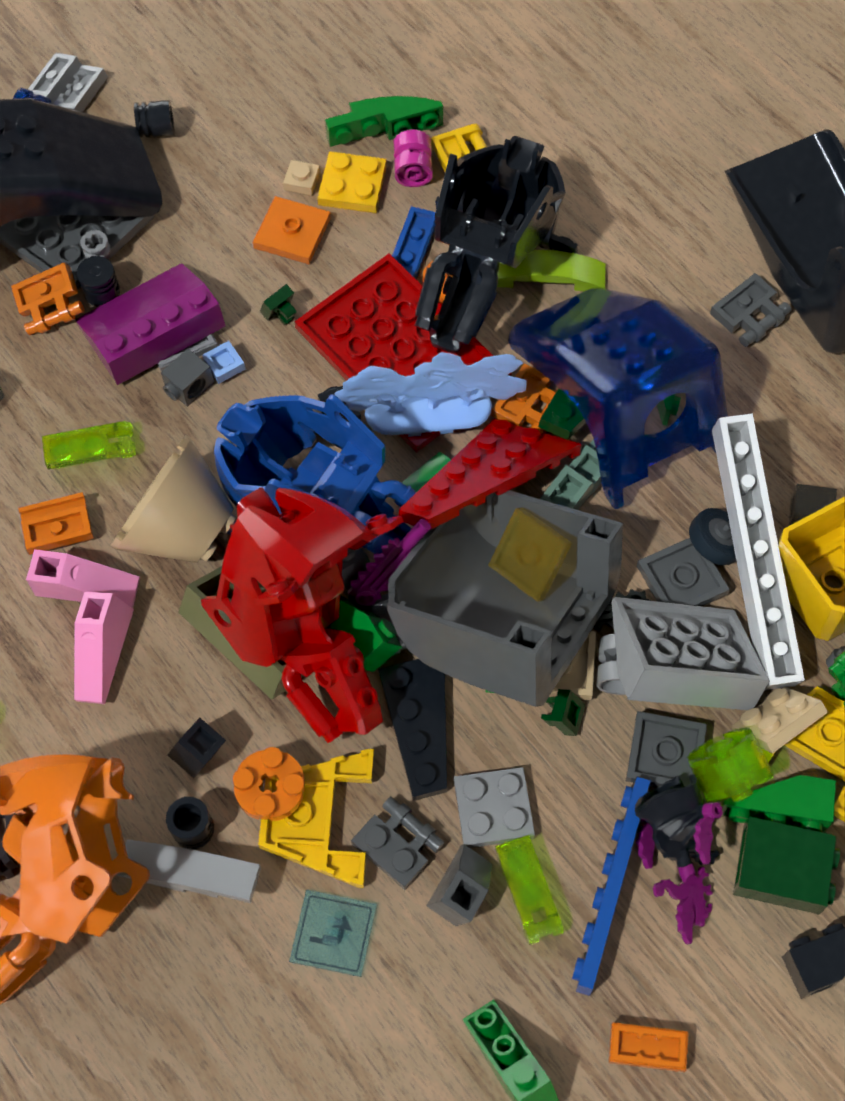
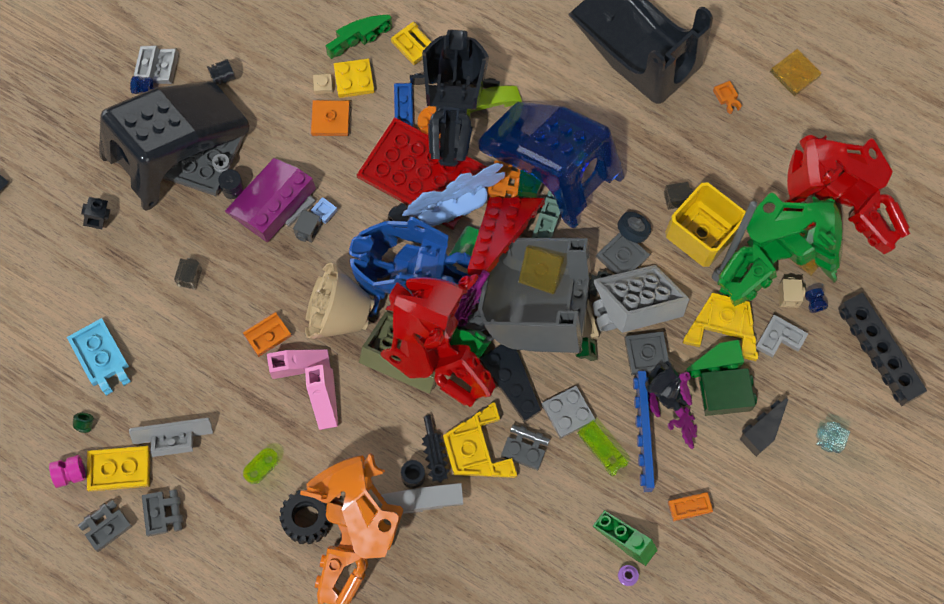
camera: 25 degrees left, 5 degrees up
(43, 291) = (202, 199): orange plate -> none
(88, 445) = (266, 283): clear neon green plate -> none
(196, 747) = (400, 433): black brick -> none
(236, 822) = (434, 452): none -> black piece
(269, 764) = (451, 450): orange plate -> none
(279, 305) = (343, 167): dark green tile -> none
(333, 933) = (509, 505): clear light blue piece -> none
(413, 158) = (385, 54): dark pink wheel -> none
(462, 887) = (569, 459): dark grey slope -> none
(730, 766) = (684, 350): clear neon green brick -> none
(746, 301) = (602, 87): dark grey plate -> none
(757, 550) = (659, 228): white brick -> none
(781, 717) = (700, 317): tan plate -> none

